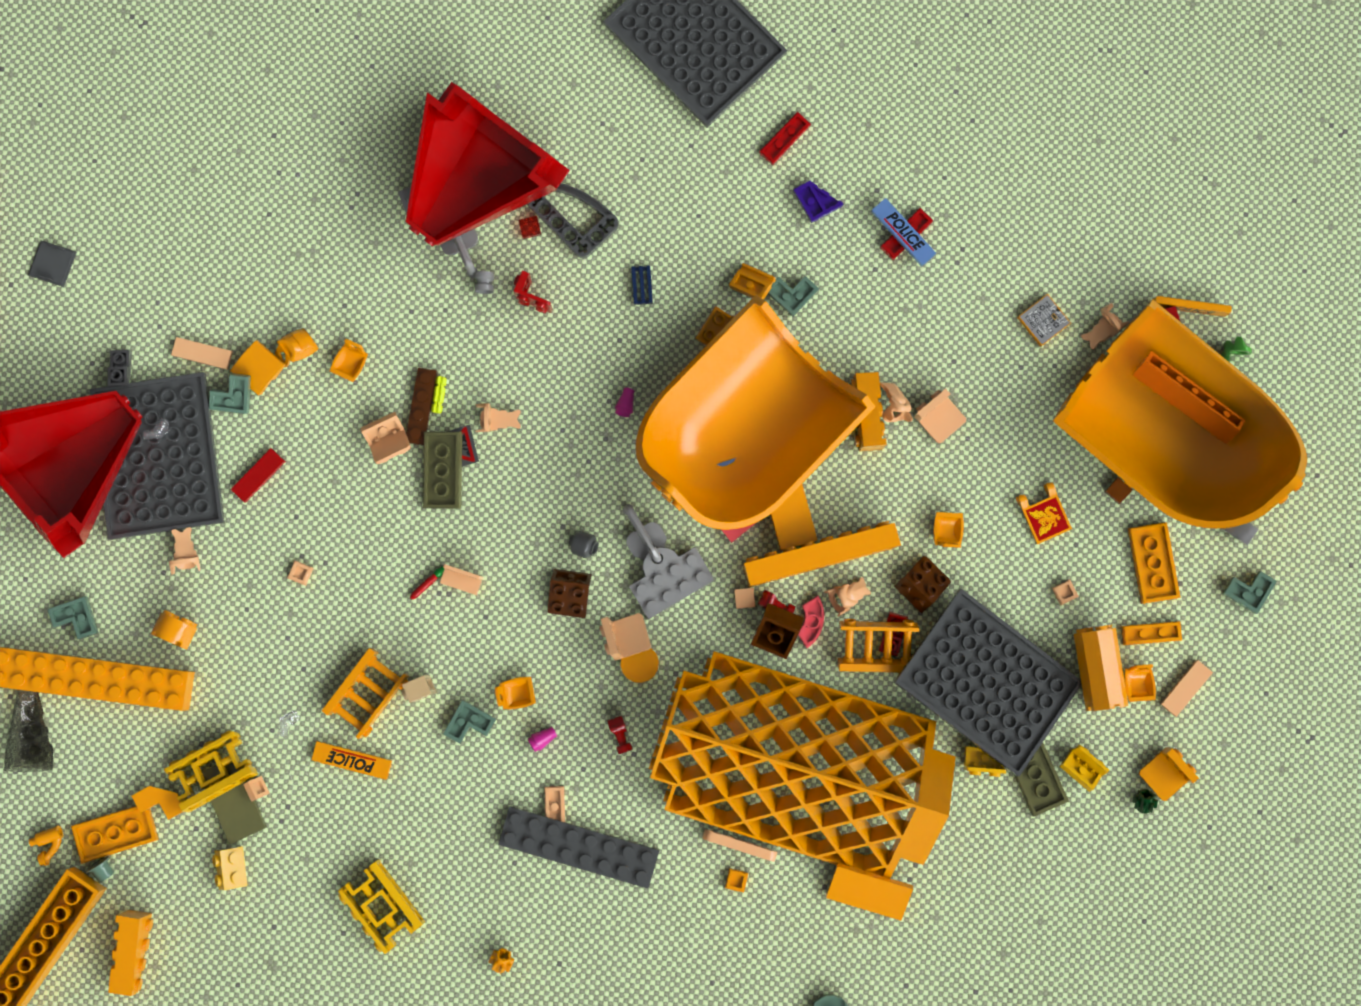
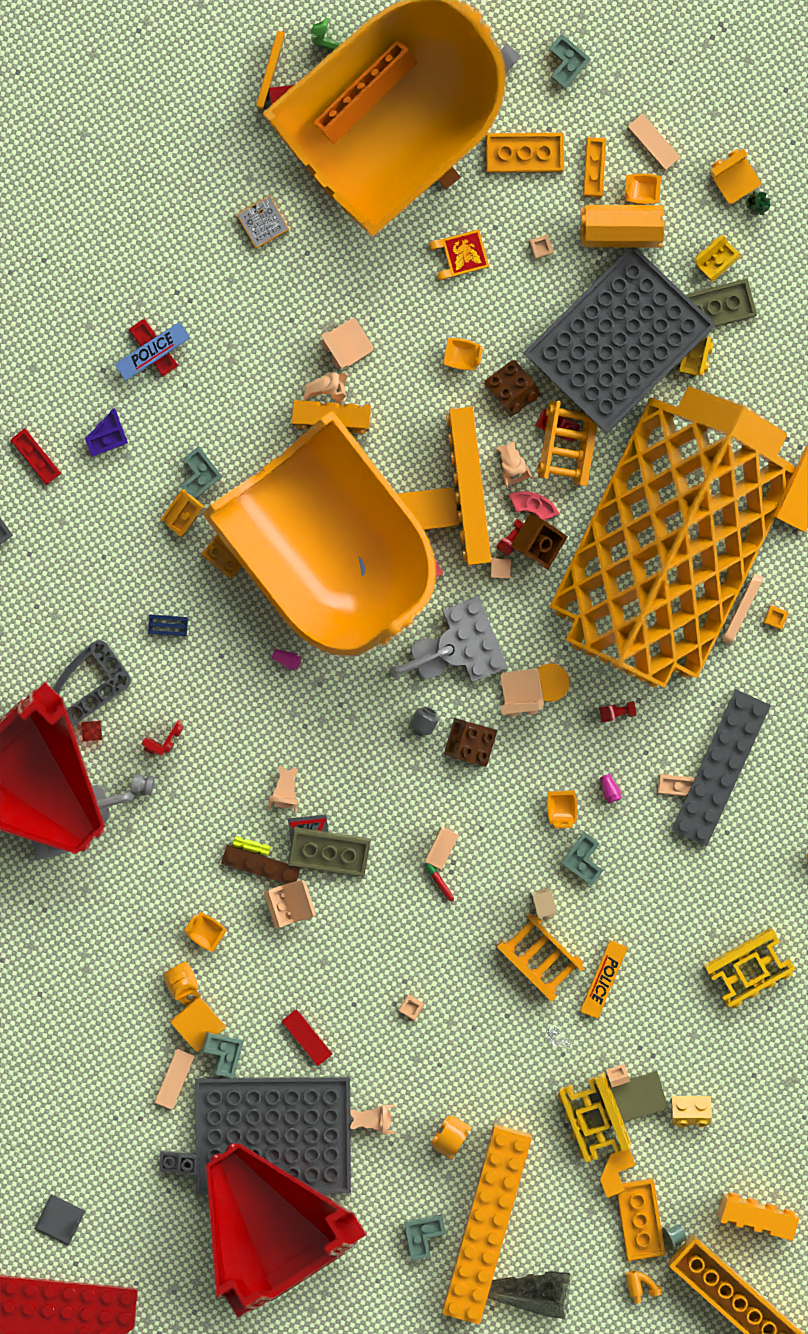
camera: 80 degrees left, 5 degrees up
(158, 431) = (250, 1129): clear arm -> none
(1107, 327) = (279, 158): light nougat hair -> none

